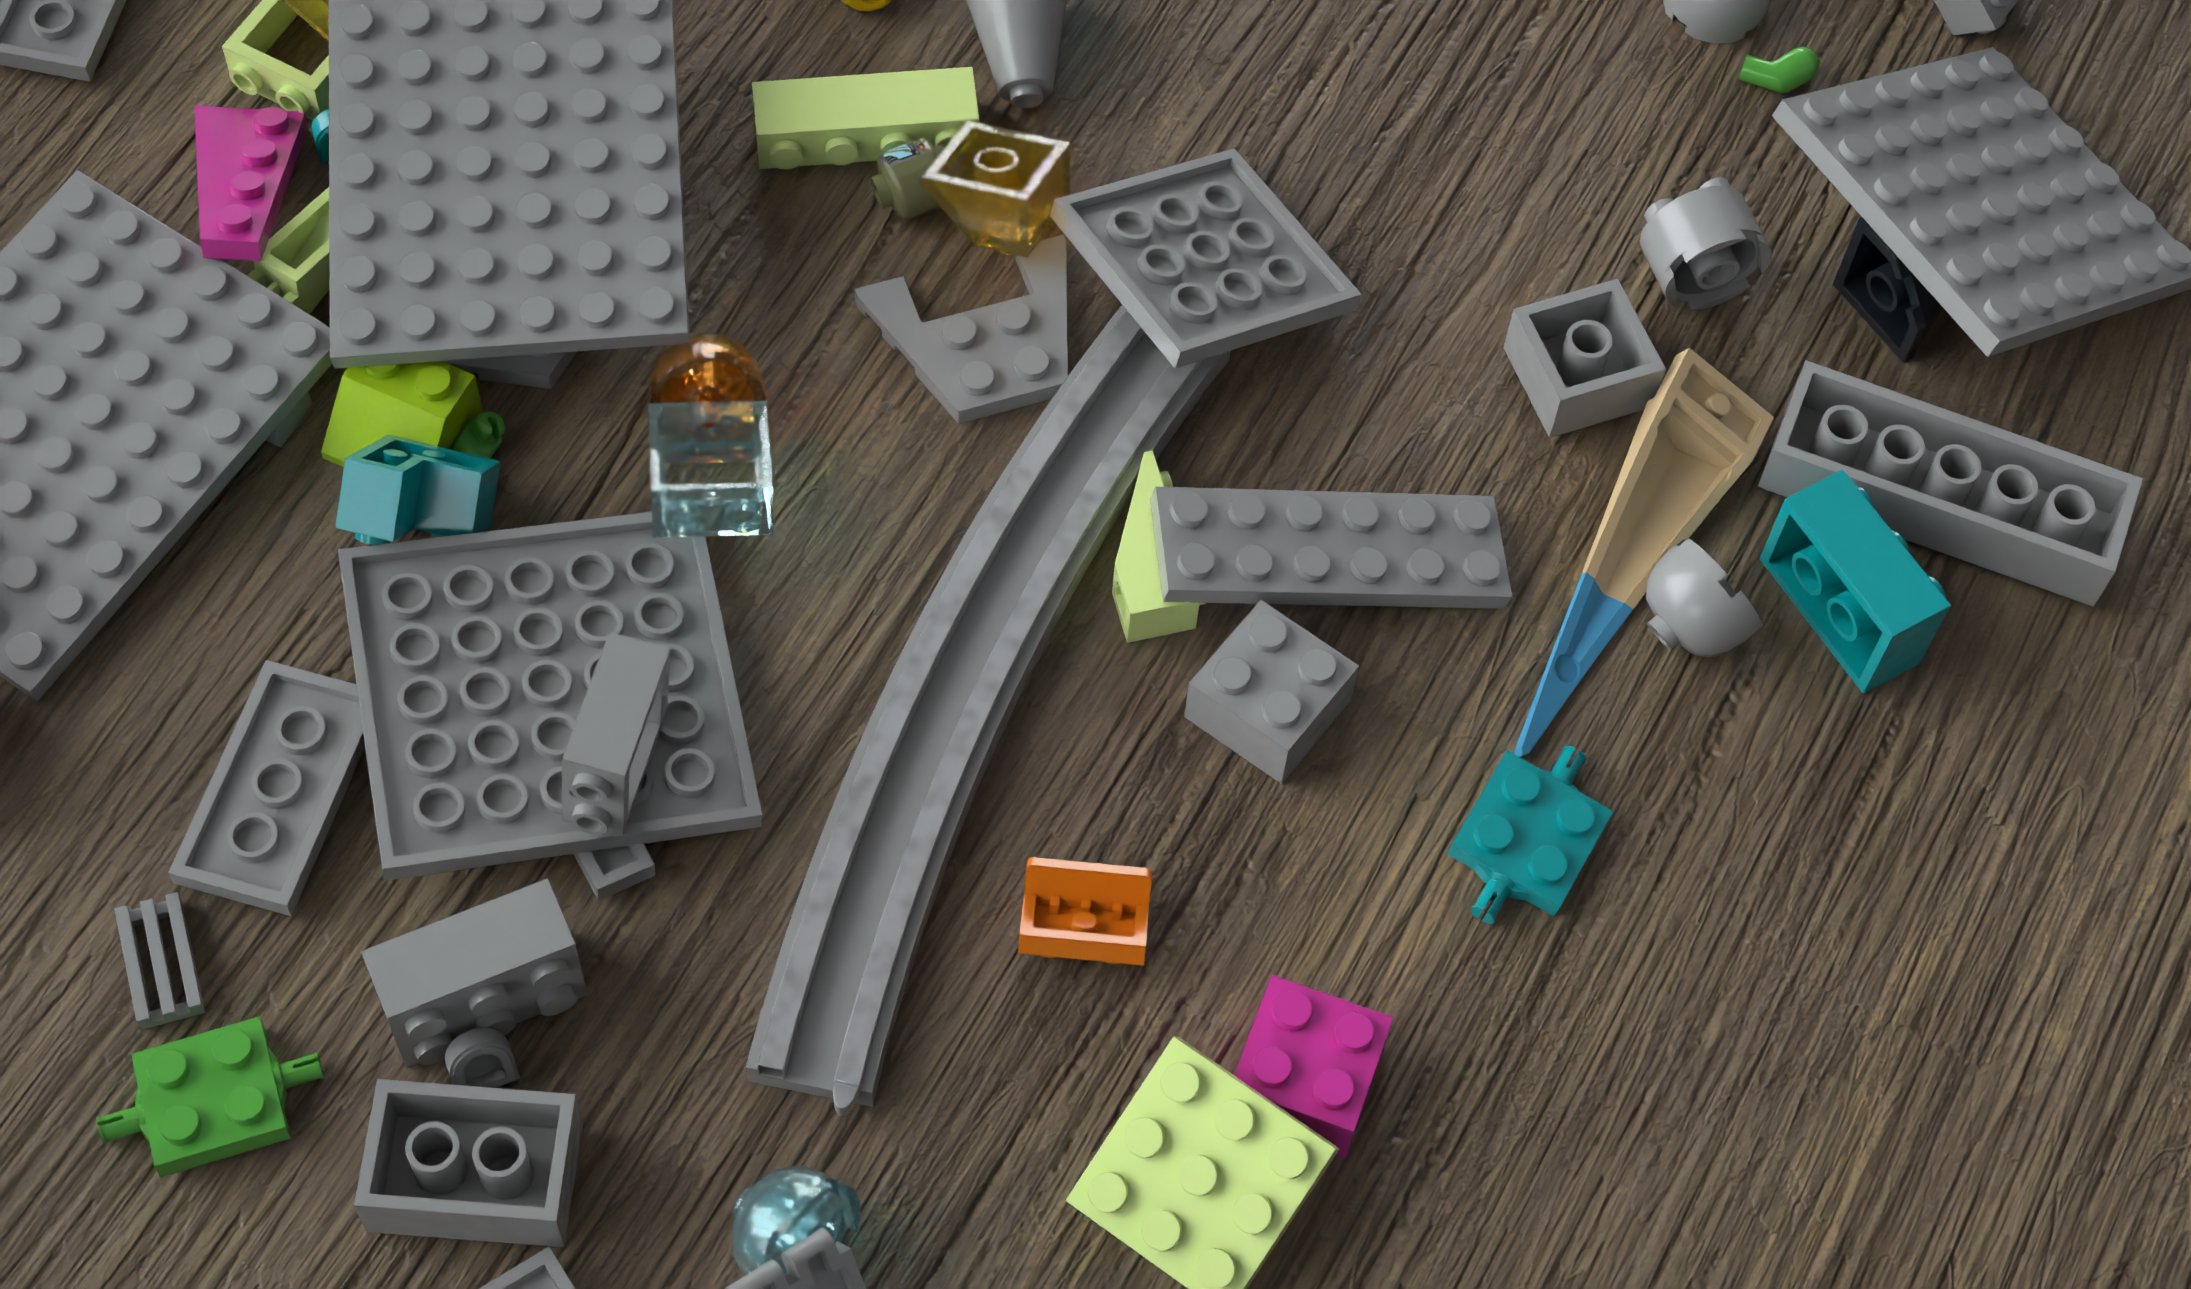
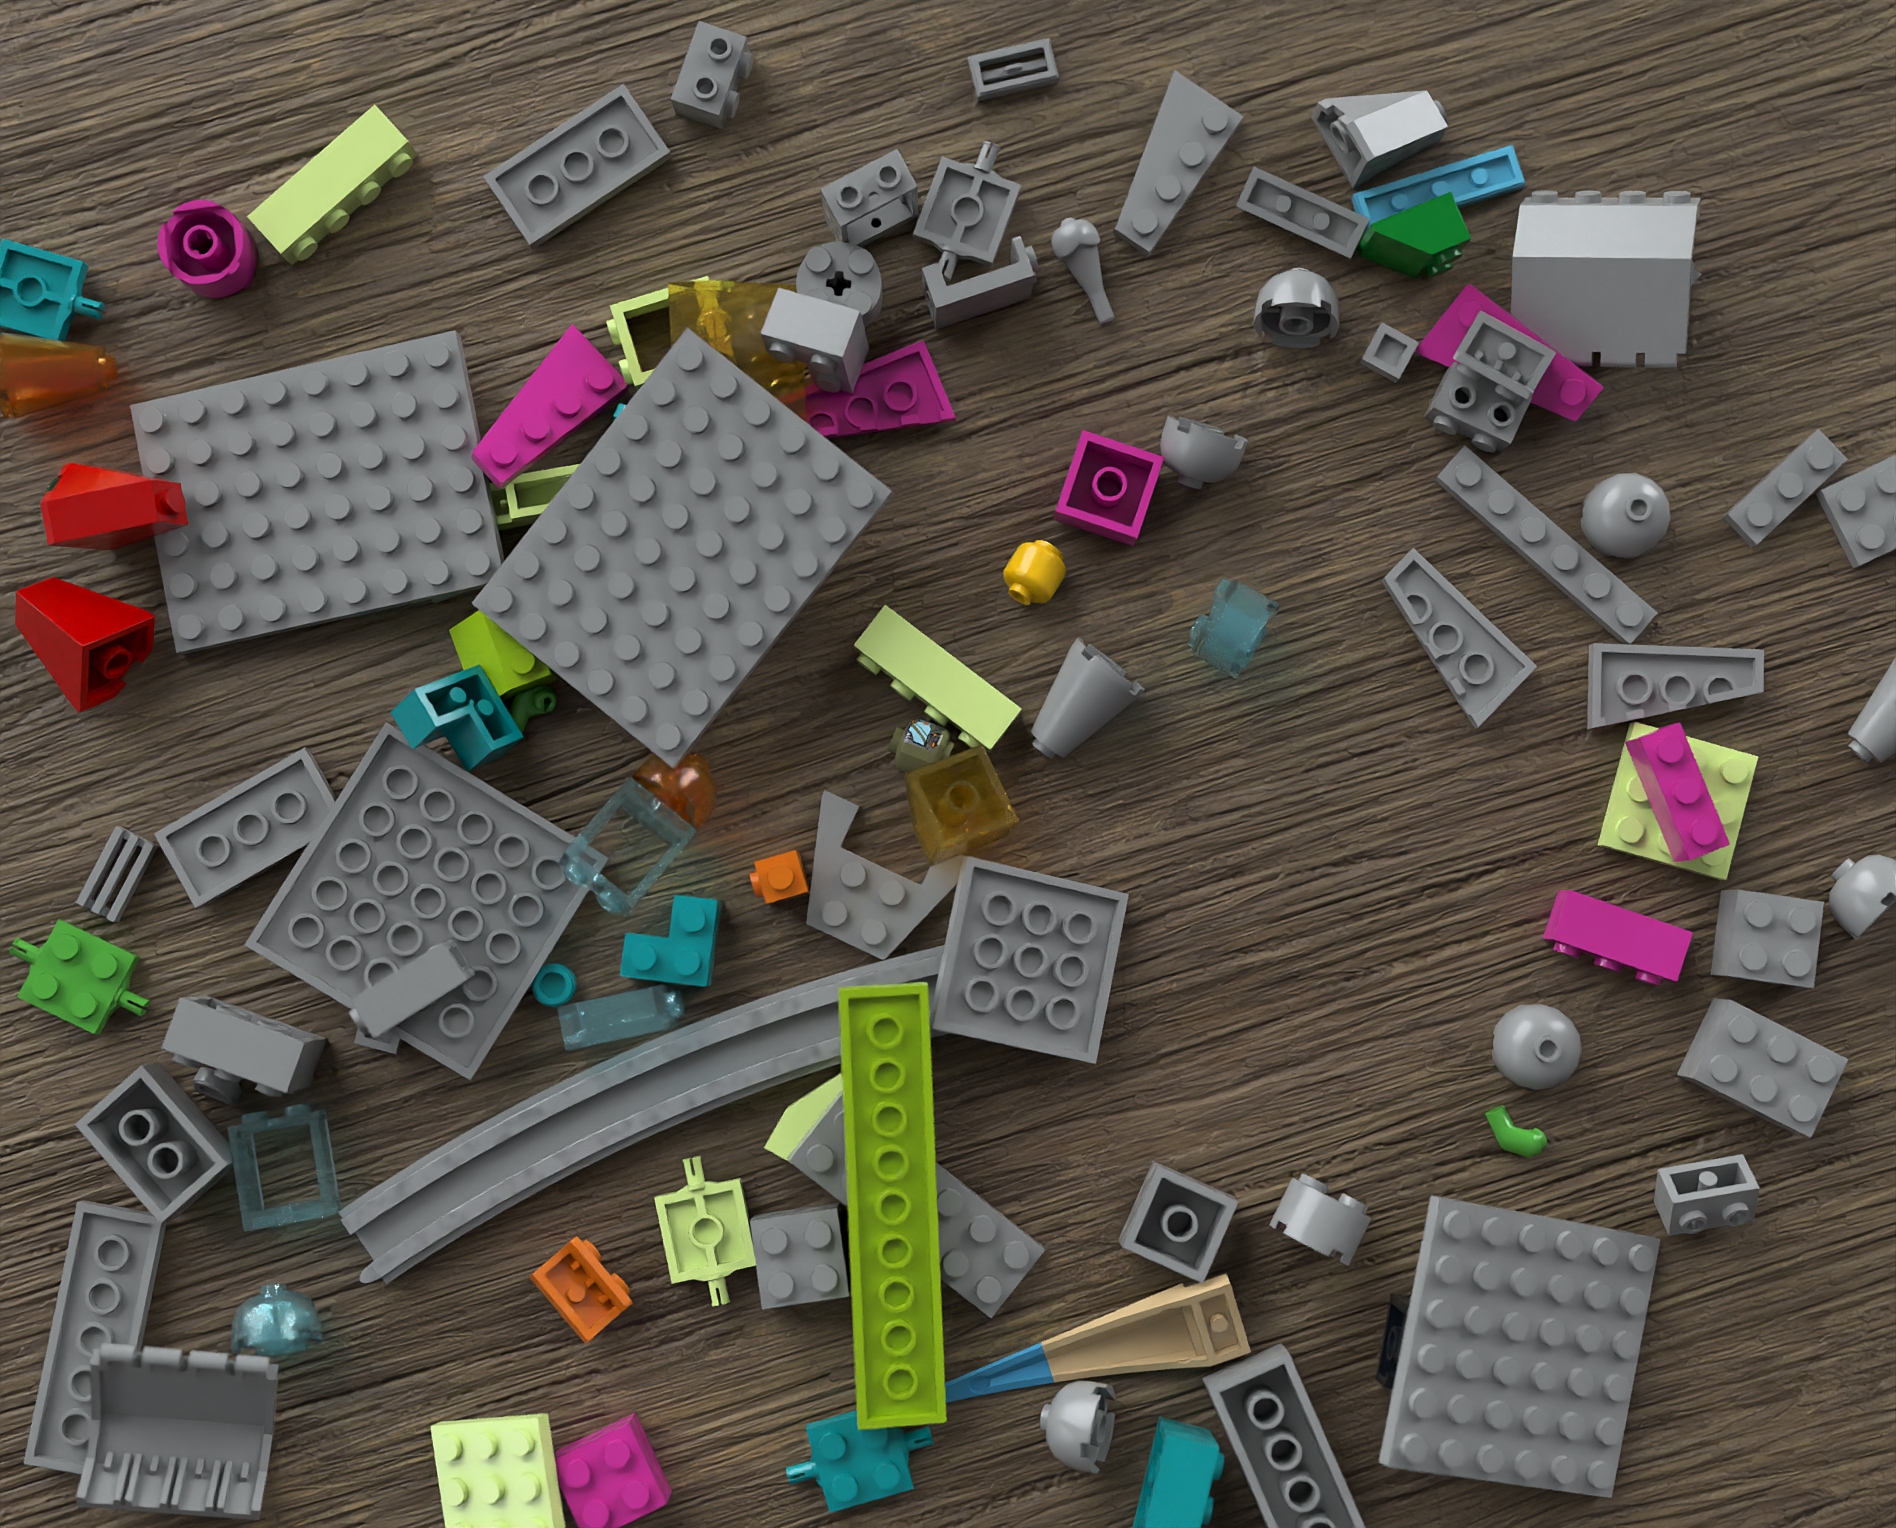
camera: 45 degrees right, 25 degrees up
(692, 1114) = (247, 1177): none -> clear light blue window
(760, 674) = (554, 985): none -> teal tile
(859, 529) = (684, 955): none -> teal brick
(859, 617) = (620, 1016): none -> clear light blue window
(893, 384) = (780, 877): none -> orange brick
(1153, 757) = (706, 1230): none -> yellowish green plate
(1315, 542) = (892, 1205): none -> lime plate

